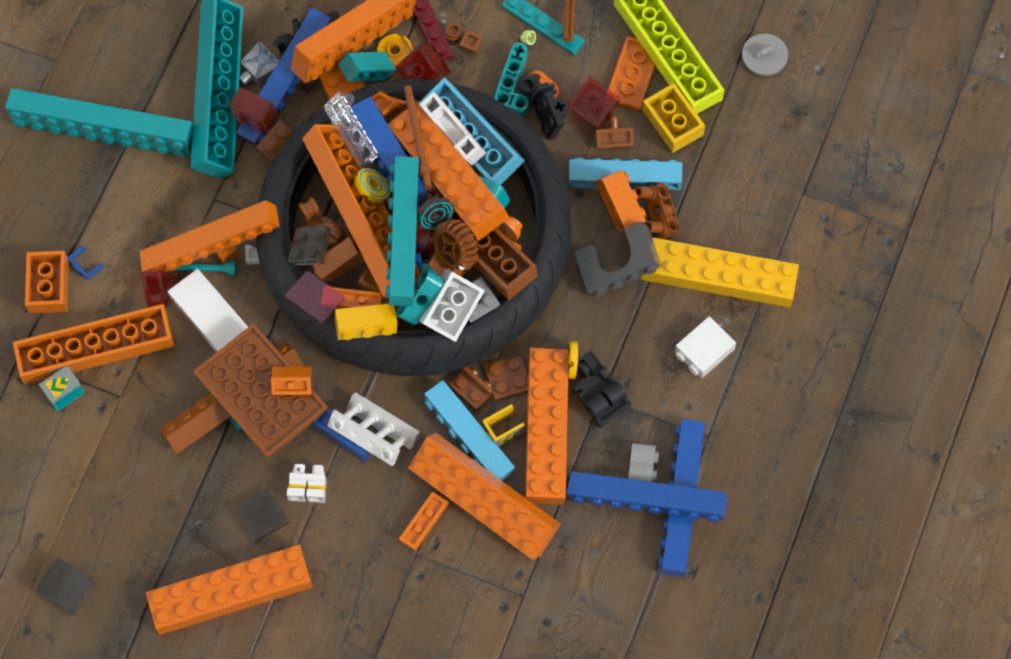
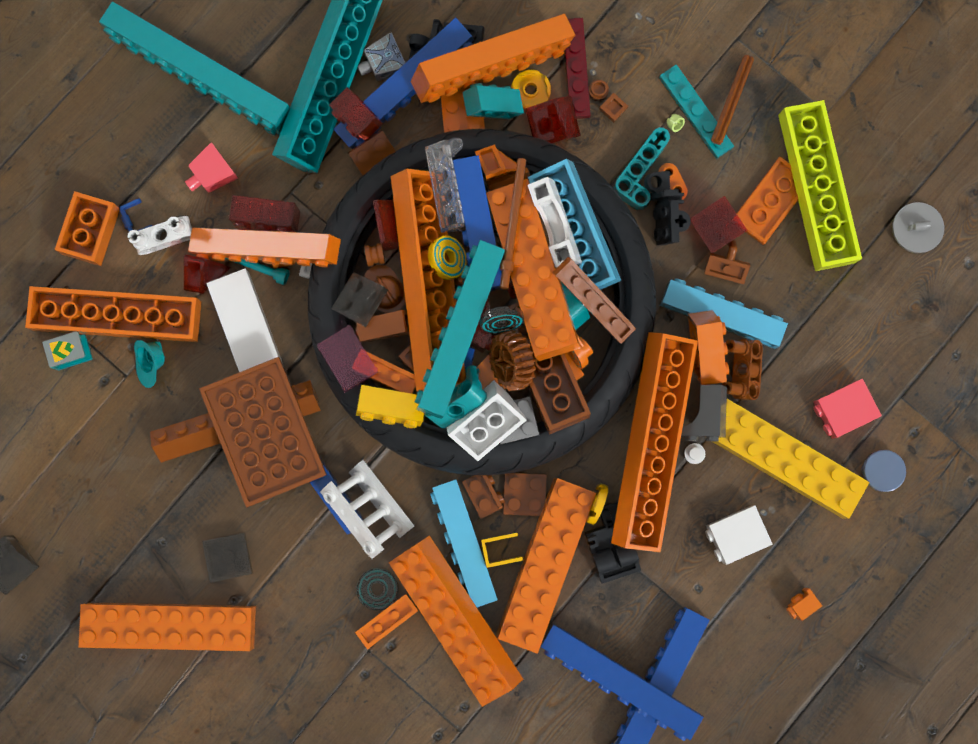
camera: 15 degrees right, 15 degrees up
(102, 275) = (149, 240): none -> white piece
(136, 374) = (148, 360): none -> teal piece
(139, 202) = (210, 170): none -> coral torso
(195, 215) = (264, 214): none -> clear red brick
(291, 380) = (296, 434): orange panel -> none
(299, 481) = (275, 536): white hips -> none
(312, 180) = (386, 224): none -> clear red slope
(401, 488) = (365, 593): none -> clear smoke tile
(507, 178) = (594, 300): none -> plate
(601, 286) = (654, 442): none -> orange brick
(642, 295) = (694, 453): none -> white plate
(642, 463) = (628, 640): light grey brick -> none
(673, 118) = (796, 269): yellow brick -> none
(759, 216) = (846, 409): none -> coral brick
(782, 385) = (803, 605): none -> orange brick
(811, 255) = (884, 470): none -> sand blue tile

